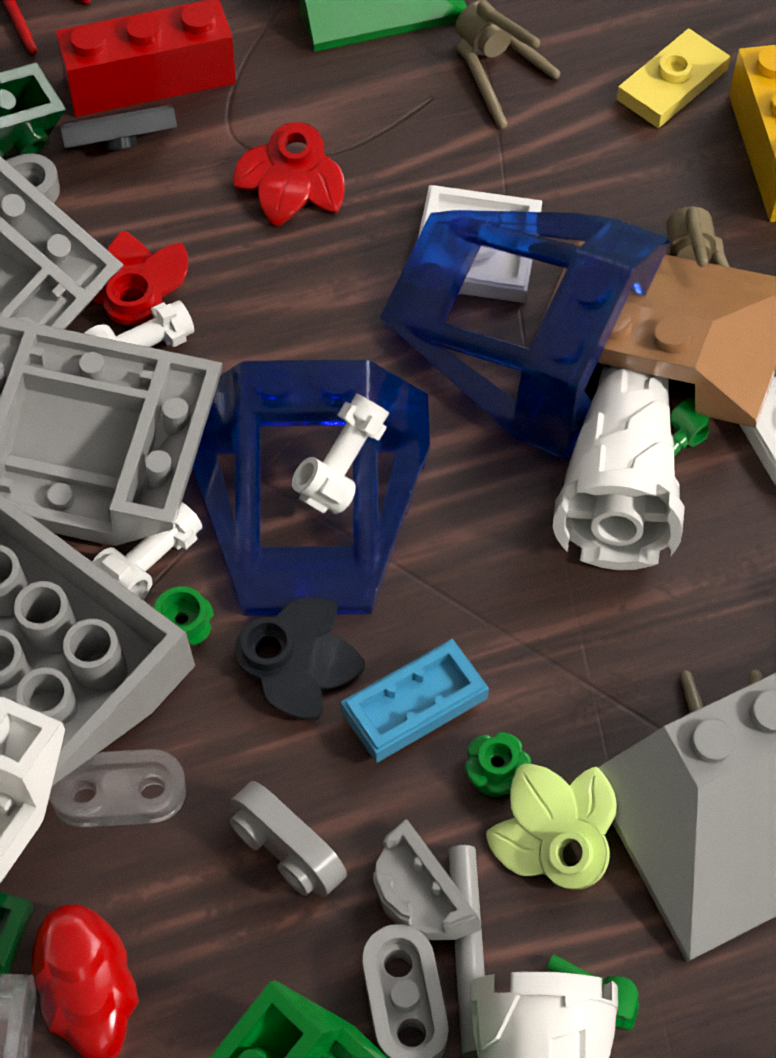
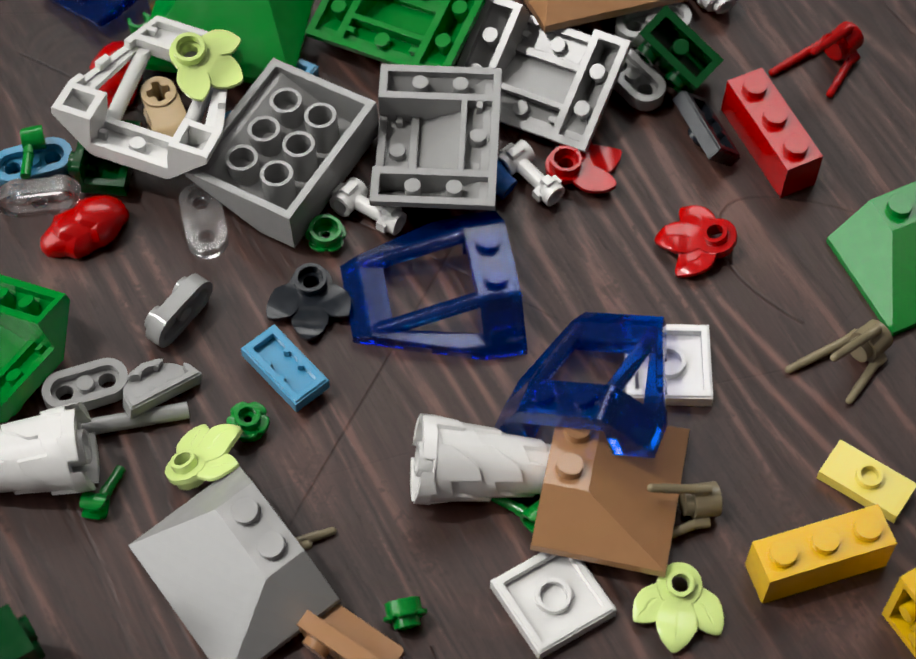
camera: 80 degrees right, 0 degrees up
(325, 483) = (425, 287): white bar -> none

